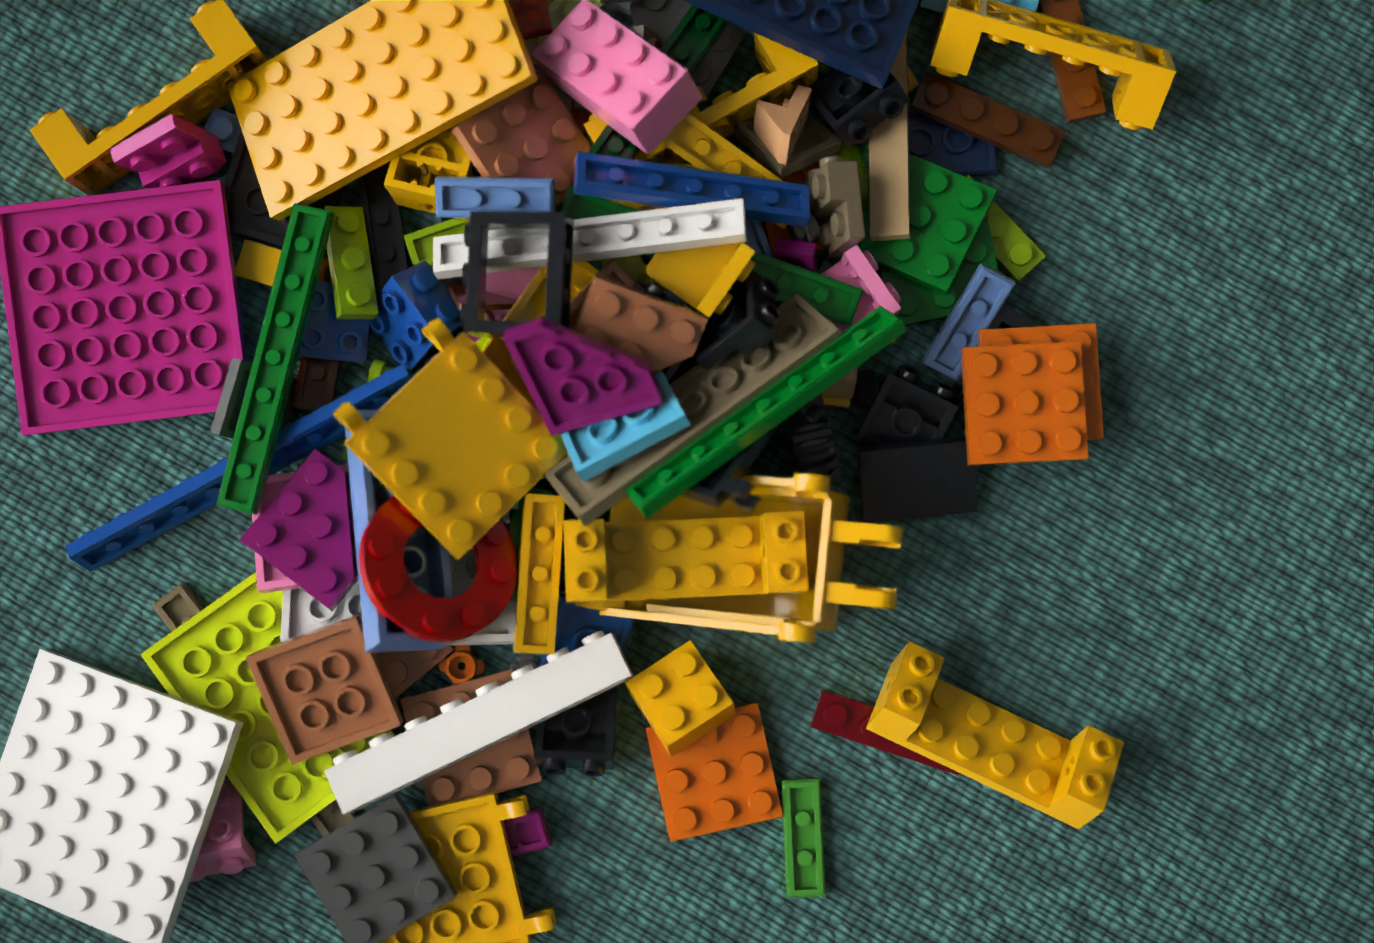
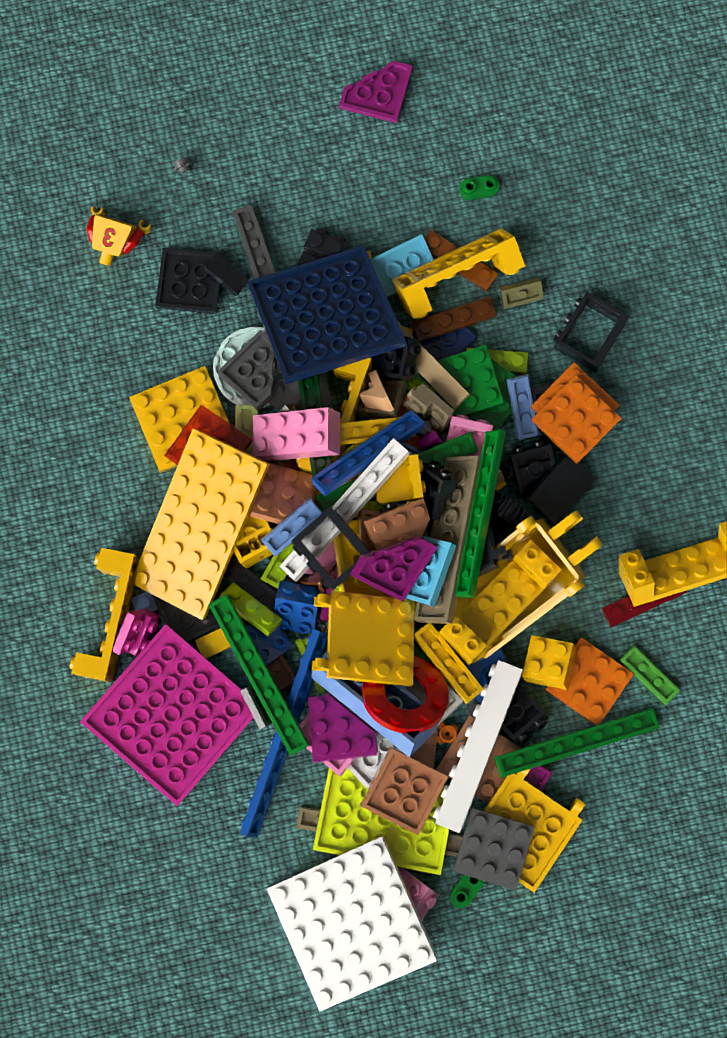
camera: 40 degrees left, 5 degrees down
(296, 890) = (467, 888): none -> green plate
(617, 837) = (576, 742): none -> green tile
(1113, 166) = (521, 293): none -> olive plate
(1206, 287) = (602, 308): none -> black window

